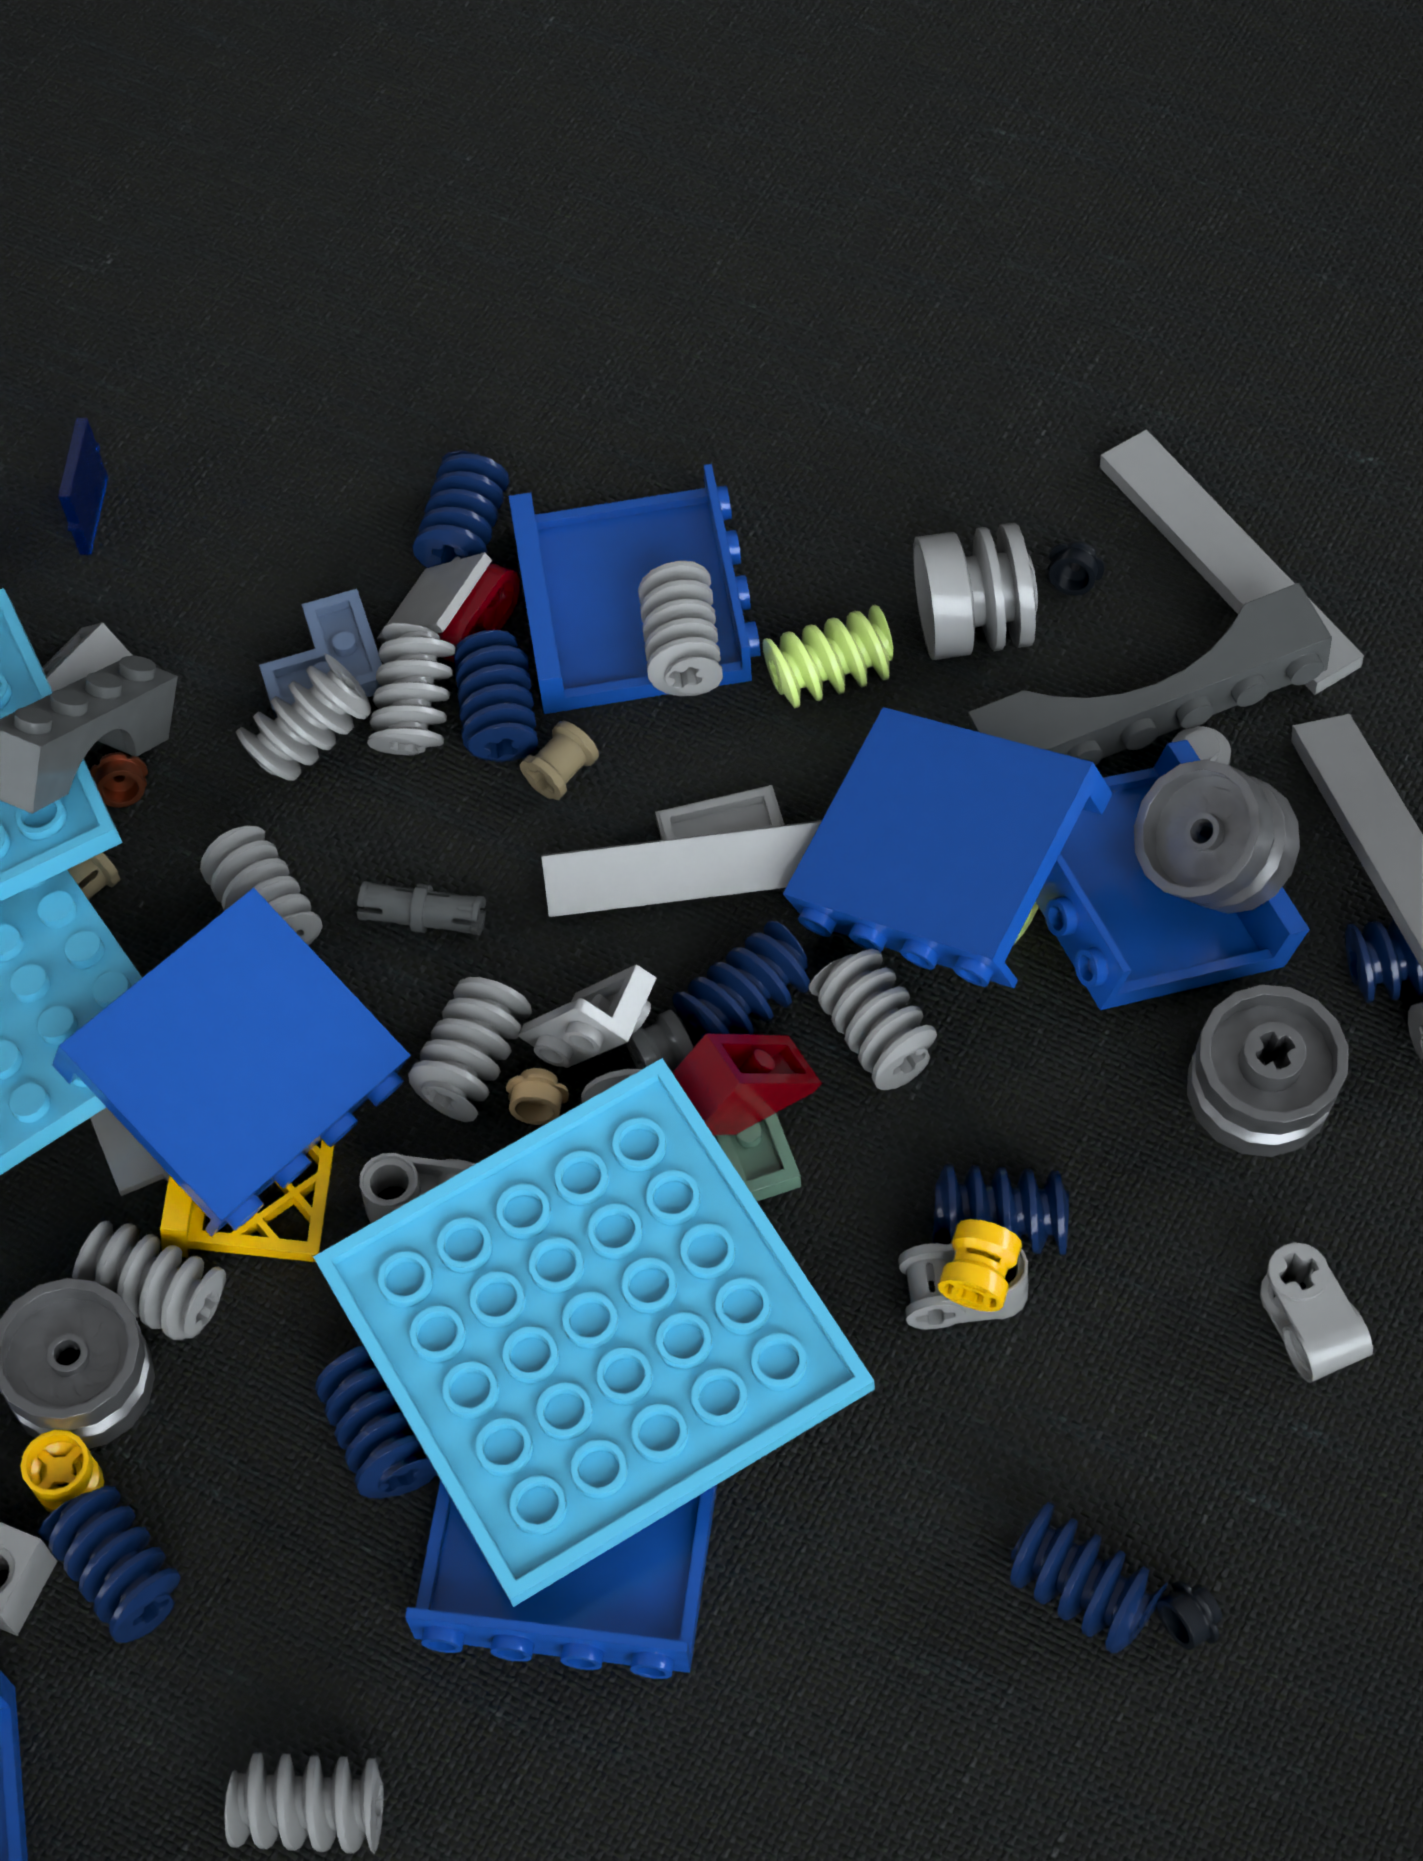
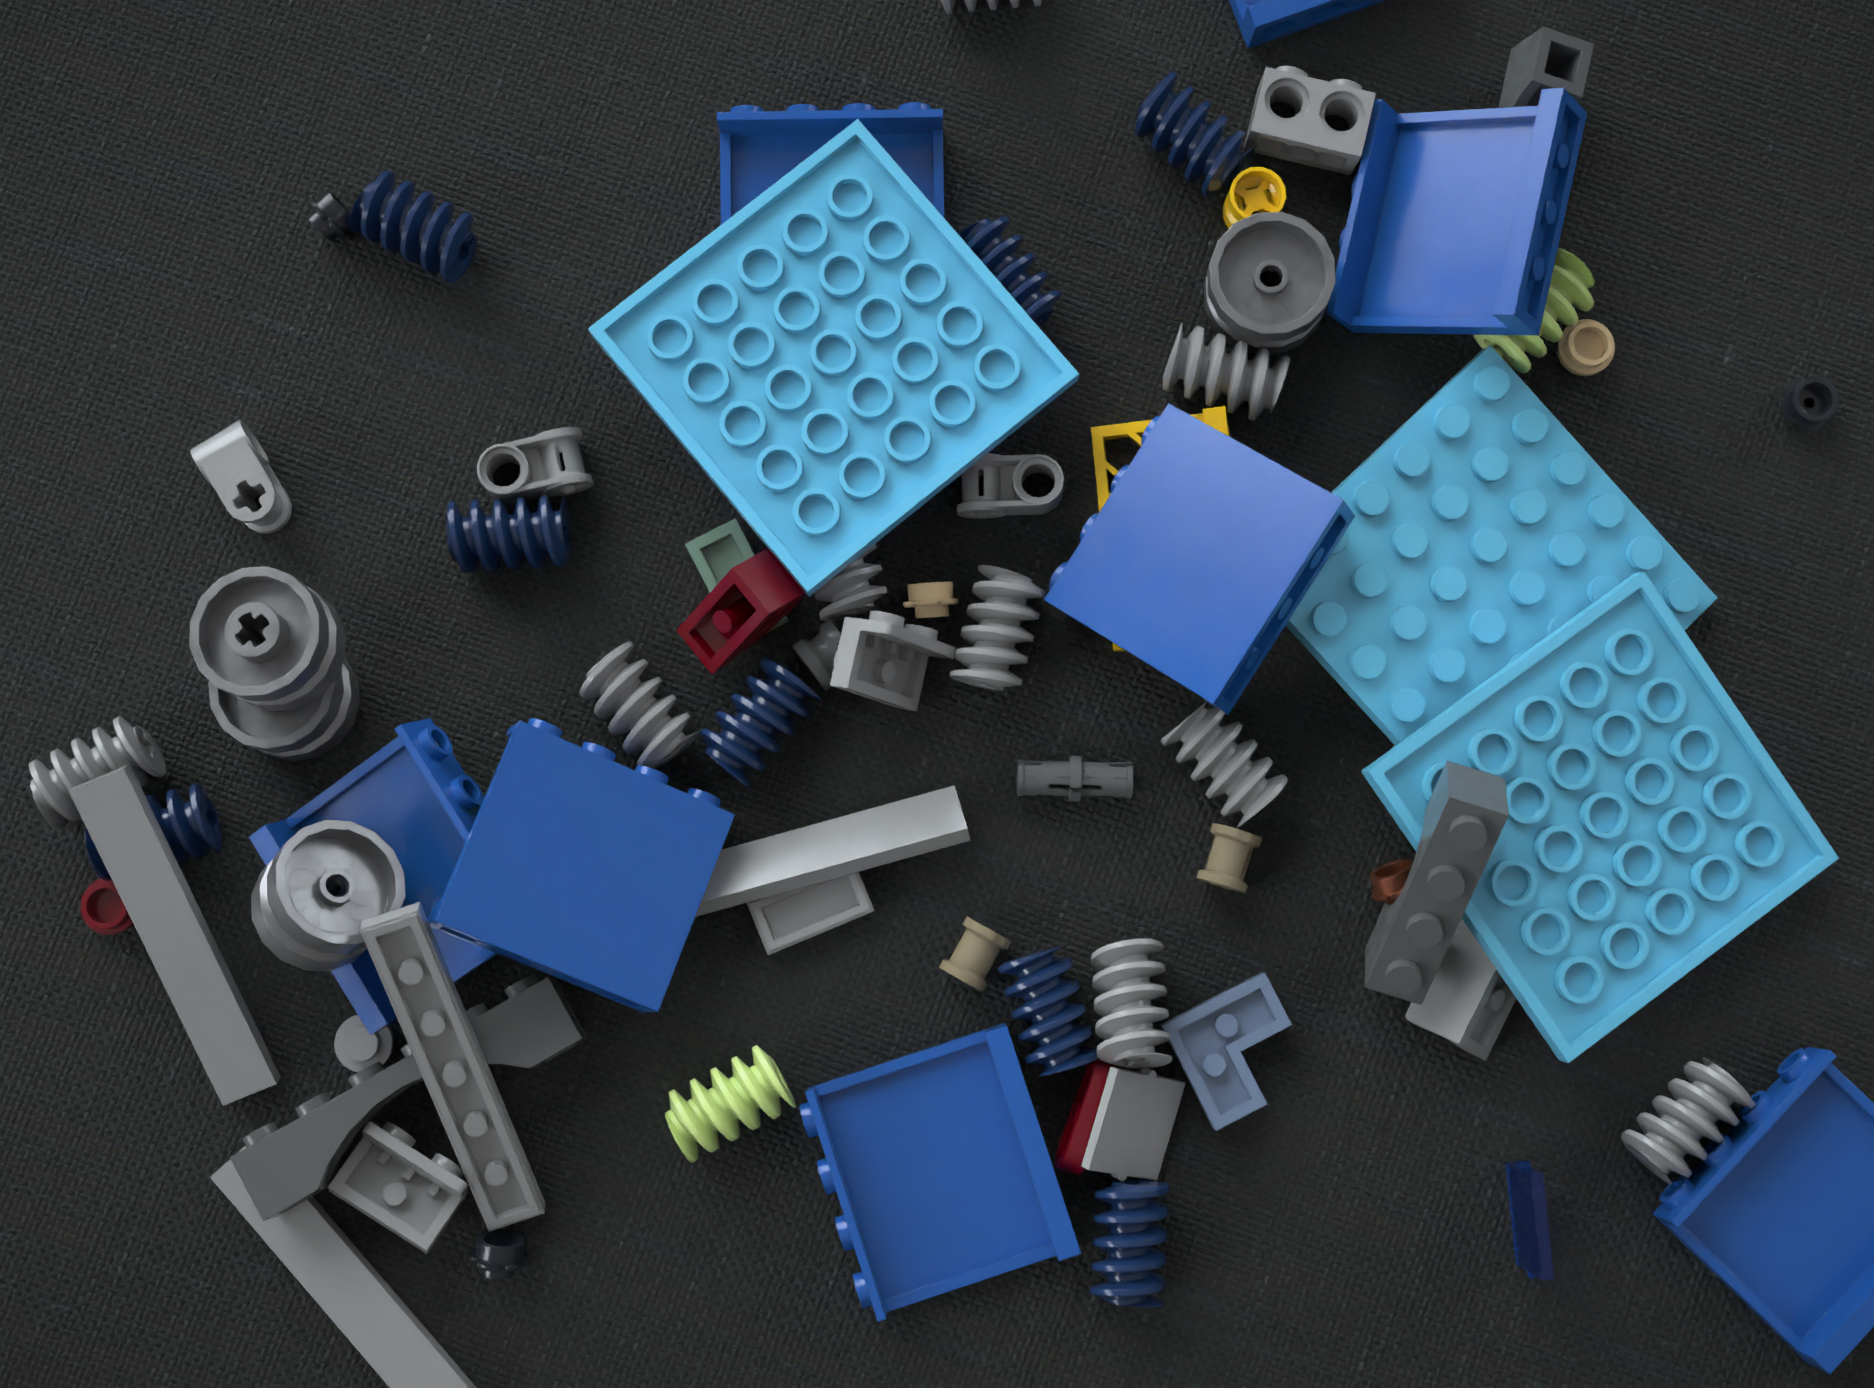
camera: 165 degrees right, 25 degrees up
(284, 812) = (1229, 858): none -> dark tan bush
(306, 722) = (1226, 952): light grey piece -> none
(680, 629) = (877, 1104): light grey piece -> none
(974, 591) = (577, 1189): light grey wheel -> none
(980, 1265) = (512, 448): yellow wheel -> none
(1101, 692) = (453, 1065): none -> light grey tile
(1163, 621) = (401, 1185): none -> light grey bracket

